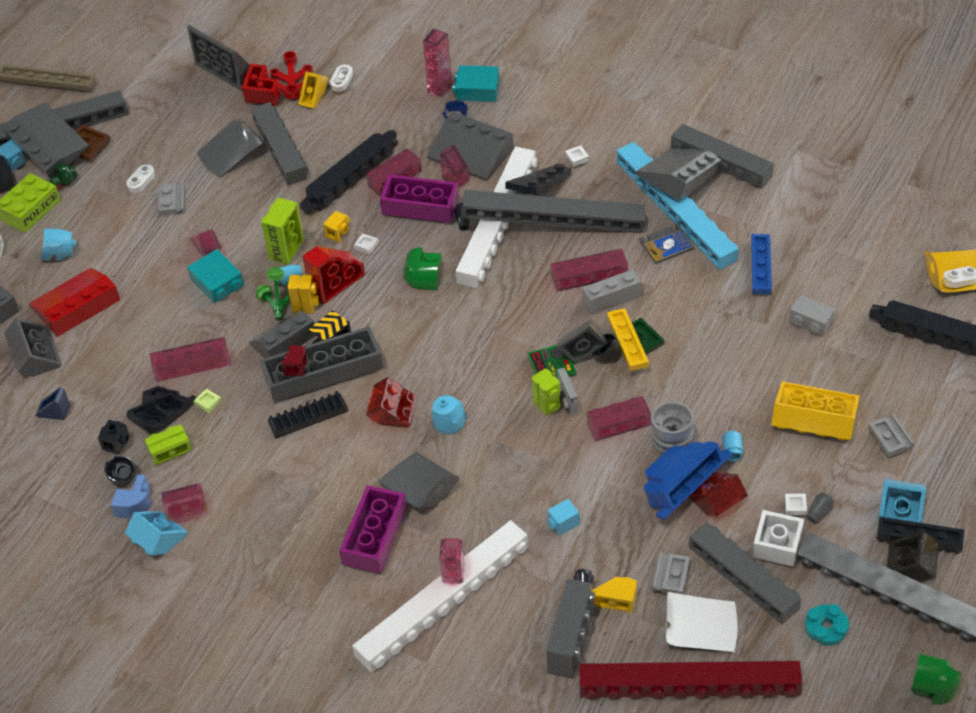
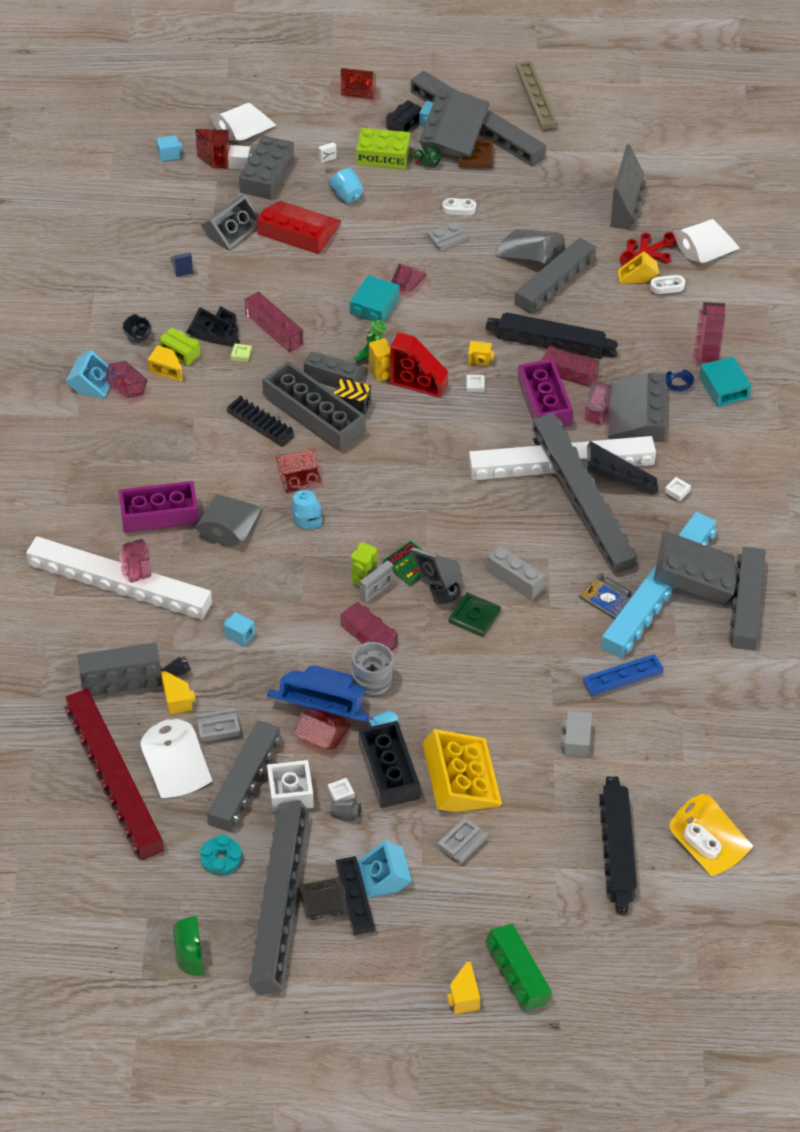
camera: 60 degrees right, 0 degrees up
(113, 436) = (168, 309): black brick -> none
(130, 501) = (114, 351): medium blue brick -> none
(184, 462) = (165, 363): none -> yellow slope
(259, 87) = (612, 231): red brick -> none
(282, 230) = (439, 315): lime brick -> none
(295, 361) = (293, 381): dark red brick -> none
(310, 39) = (704, 241): none -> white piece
(422, 269) = (465, 431): green brick -> none
(588, 269) = (535, 548): clear pink brick -> none
(628, 339) = (463, 603): yellow plate -> none
(787, 455) = (389, 764): none -> black brick

